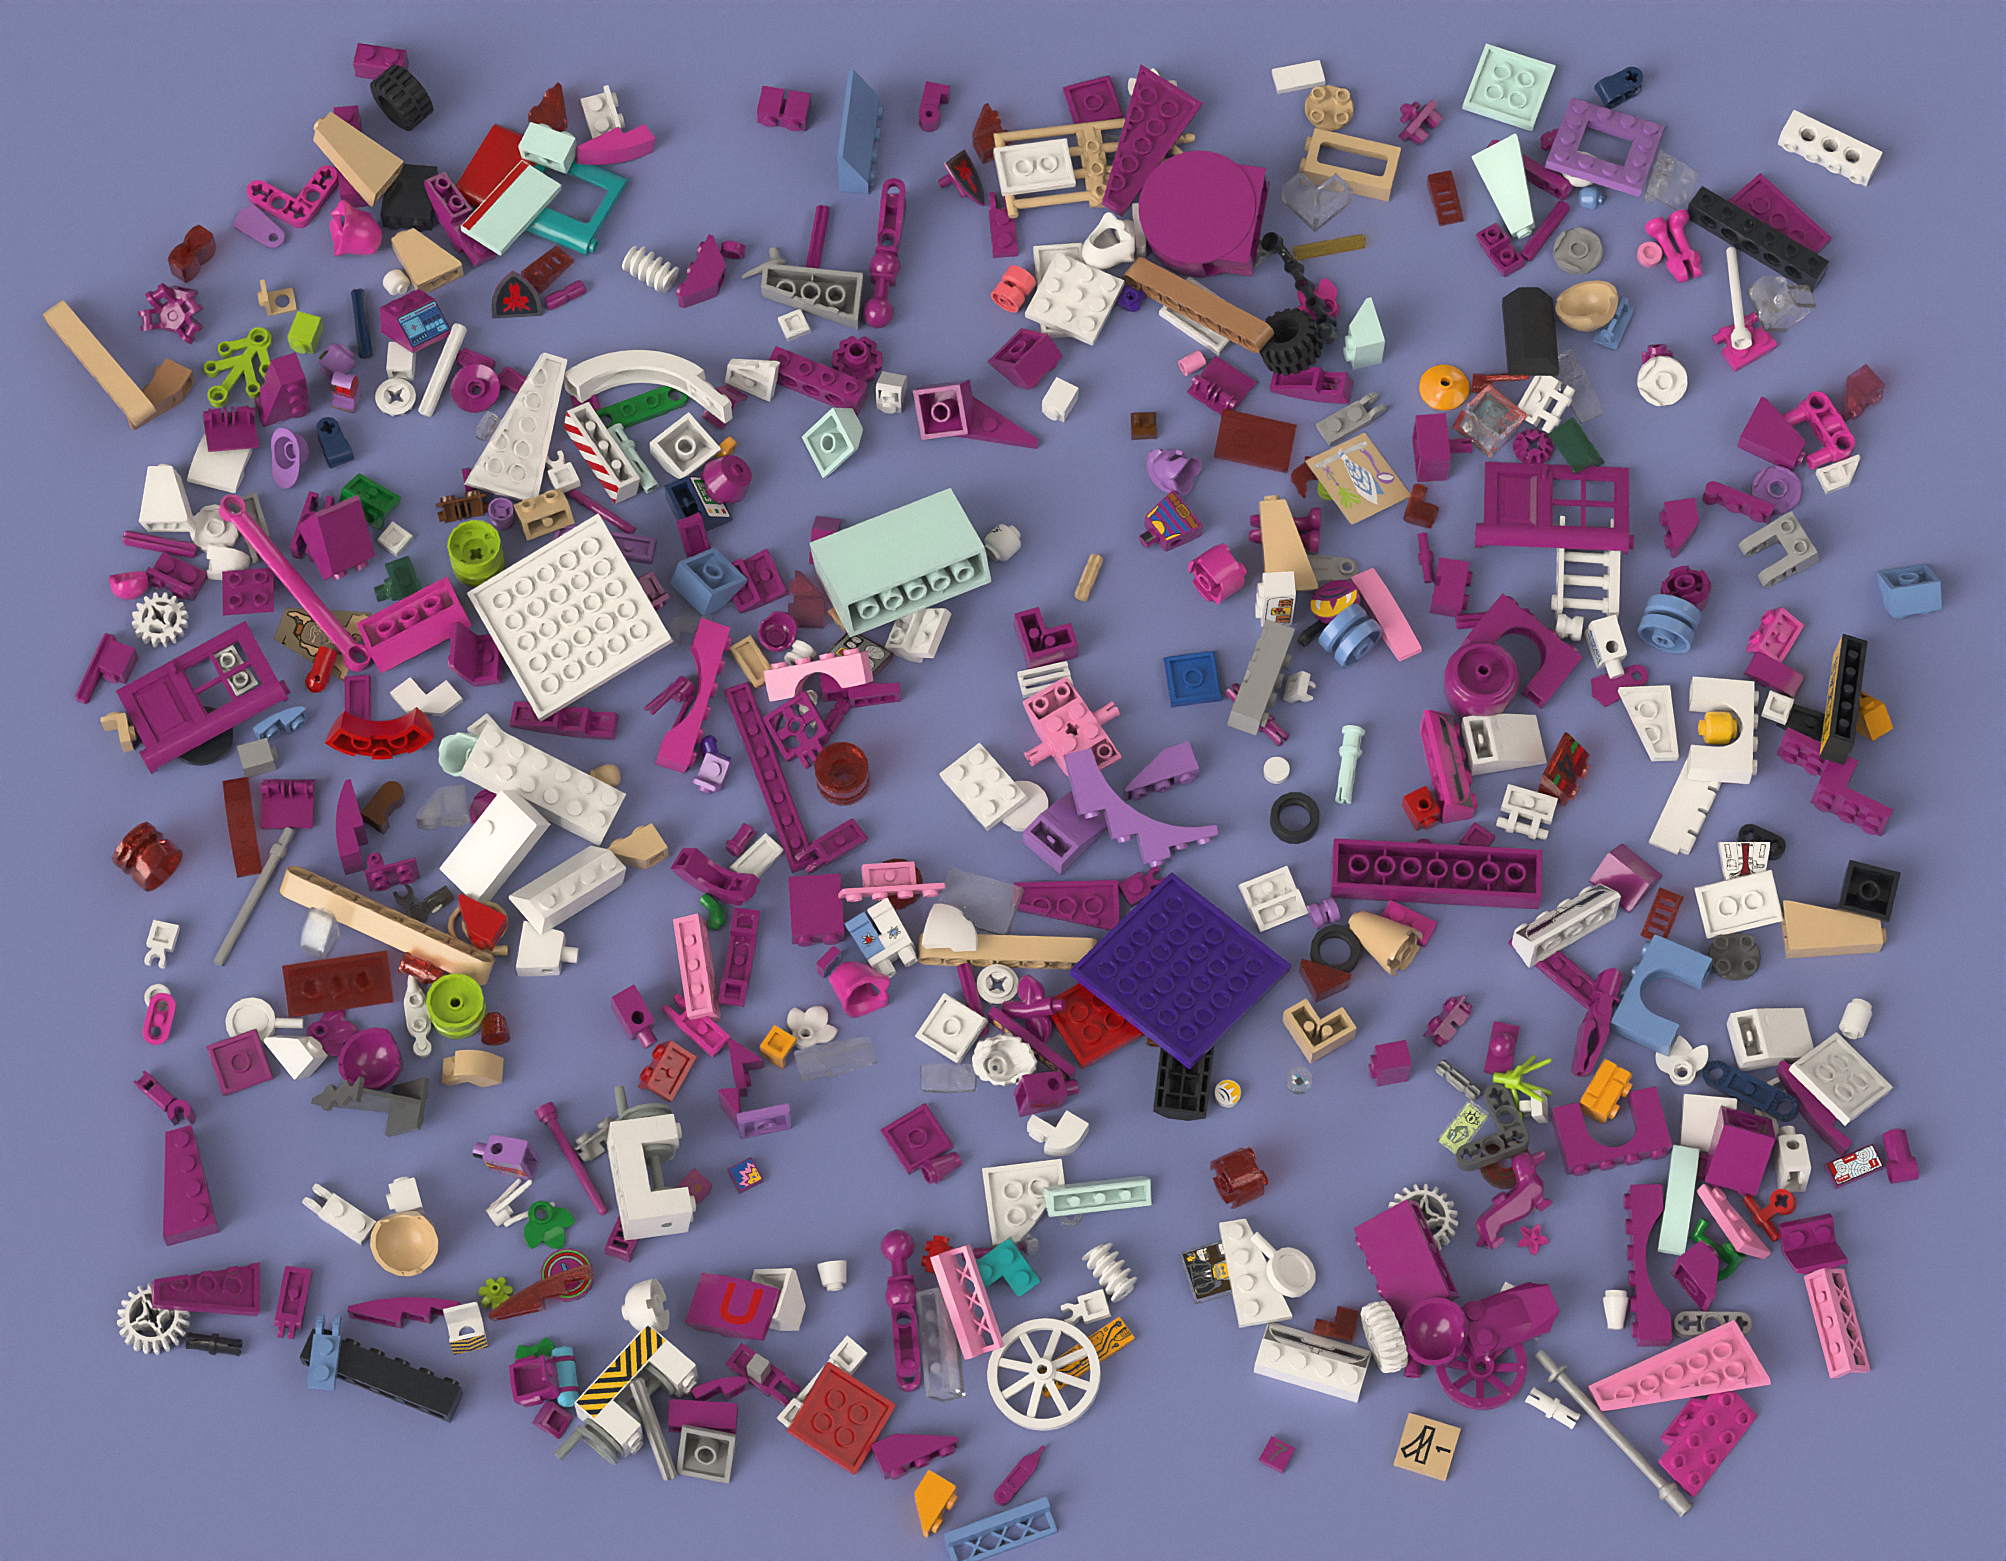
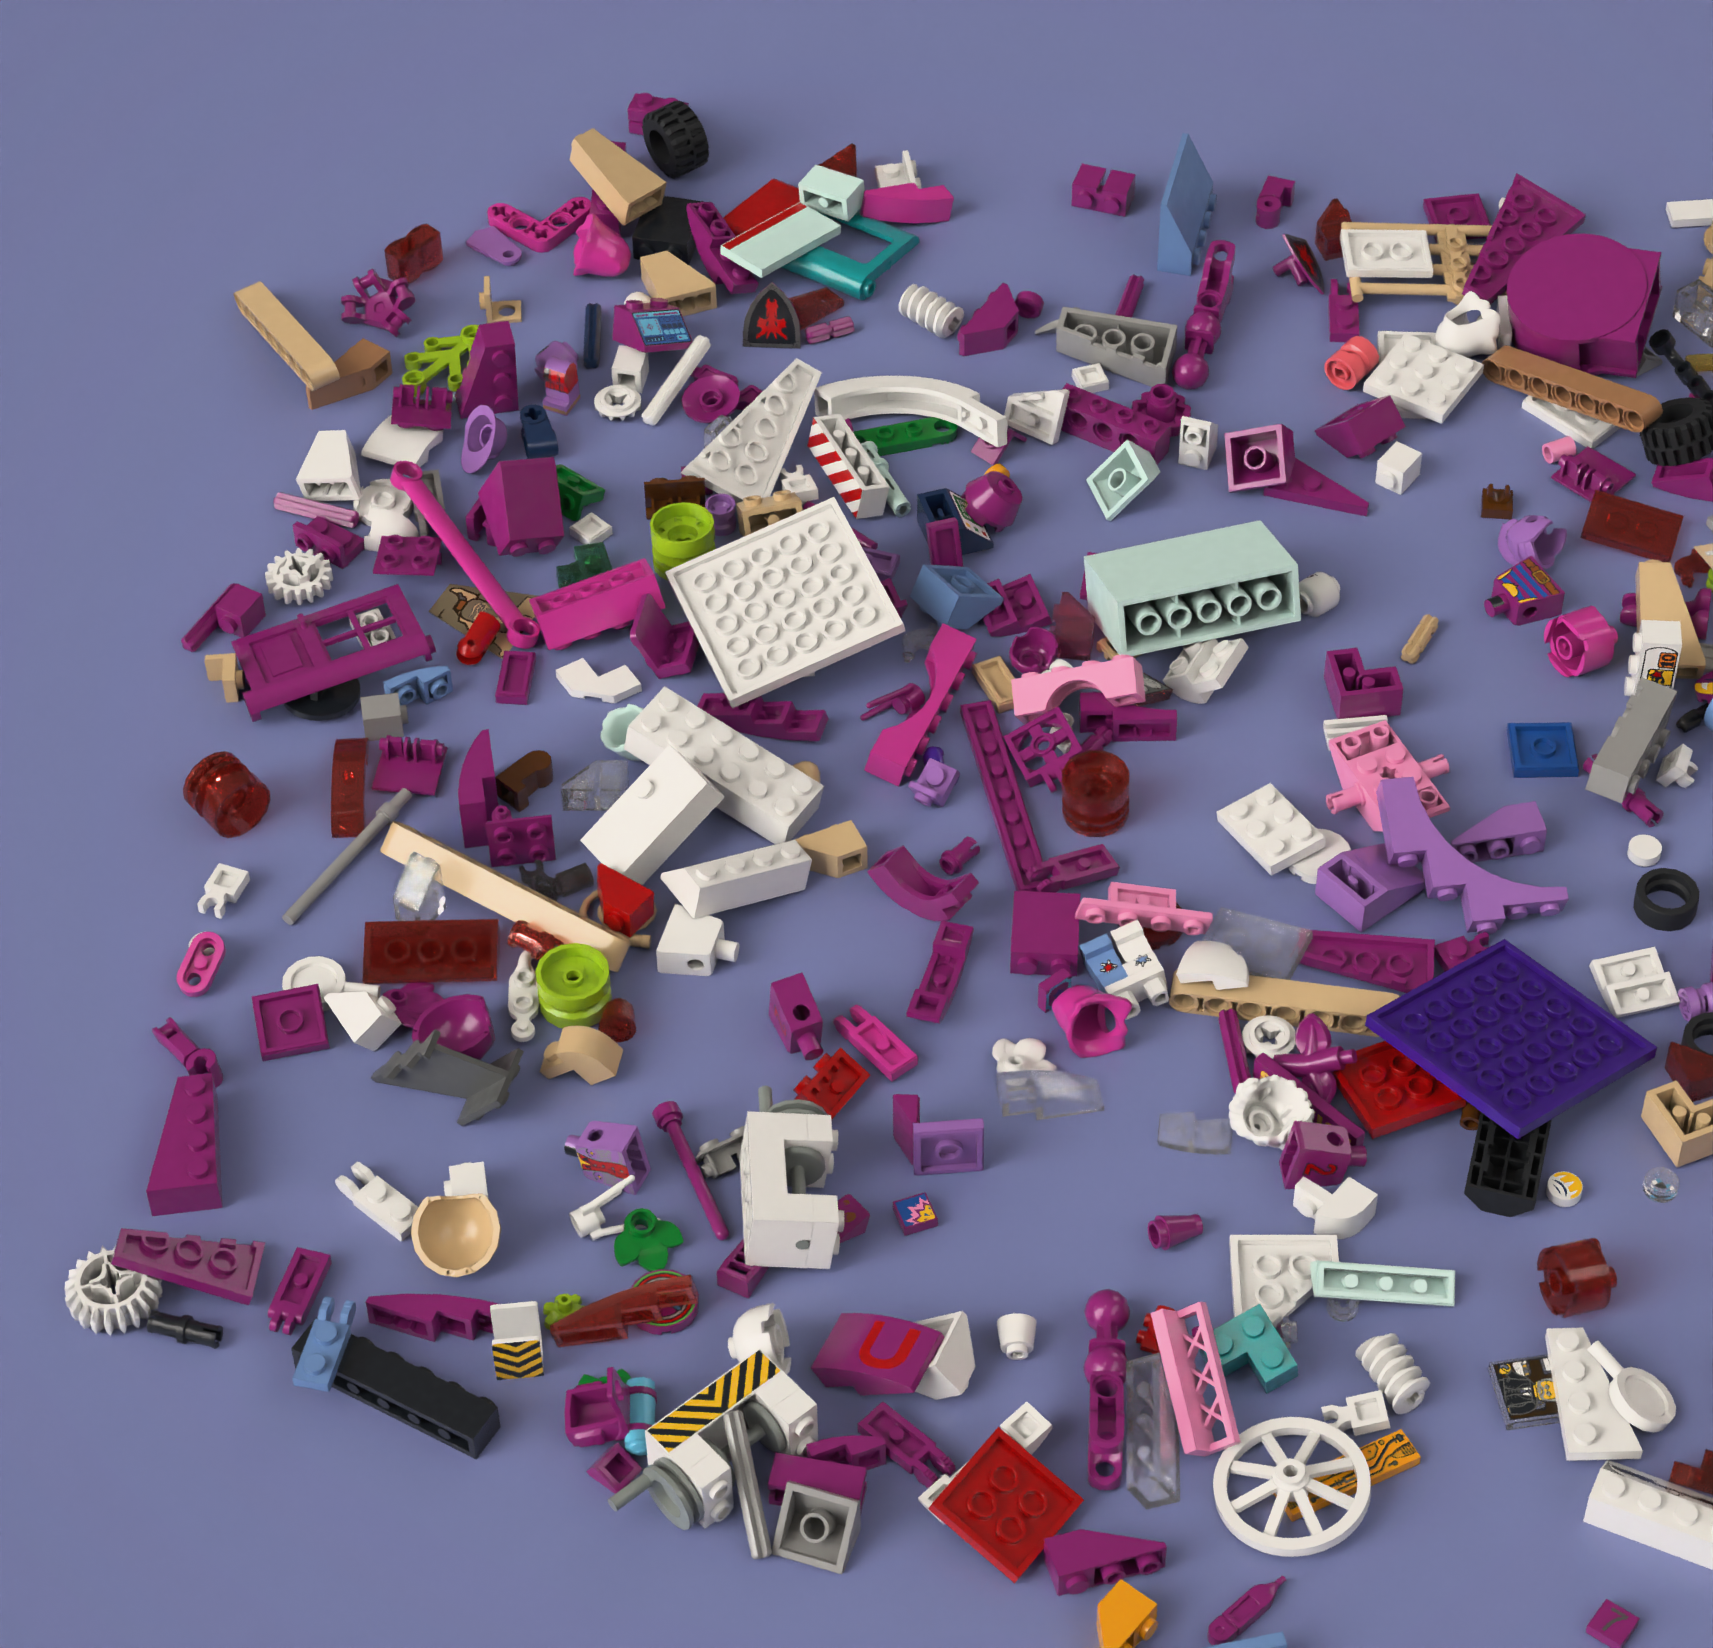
camera: 10 degrees right, 20 degrees down
(129, 585) = (270, 540): dark pink hair -> none
(305, 333) = (529, 334): lime brick -> none
(380, 738) = (534, 714): red brick -> none
(683, 447) = (943, 464): white slope -> none
(696, 967) = (885, 976): bright pink fence -> none
(715, 909) = (917, 923): green arm -> none
(741, 1061) = (931, 1086): magenta slope -> none
(758, 857) = (989, 872): white tile -> none
(758, 1368) = (901, 1426): light grey piece -> none
(777, 1046) = (975, 1069): light orange panel -> none
(916, 1138) = (1143, 1194): magenta tile -> none
(951, 1028) = (1204, 1077): white tile -> none
(1130, 305) = (1489, 387): dark purple plate -> none

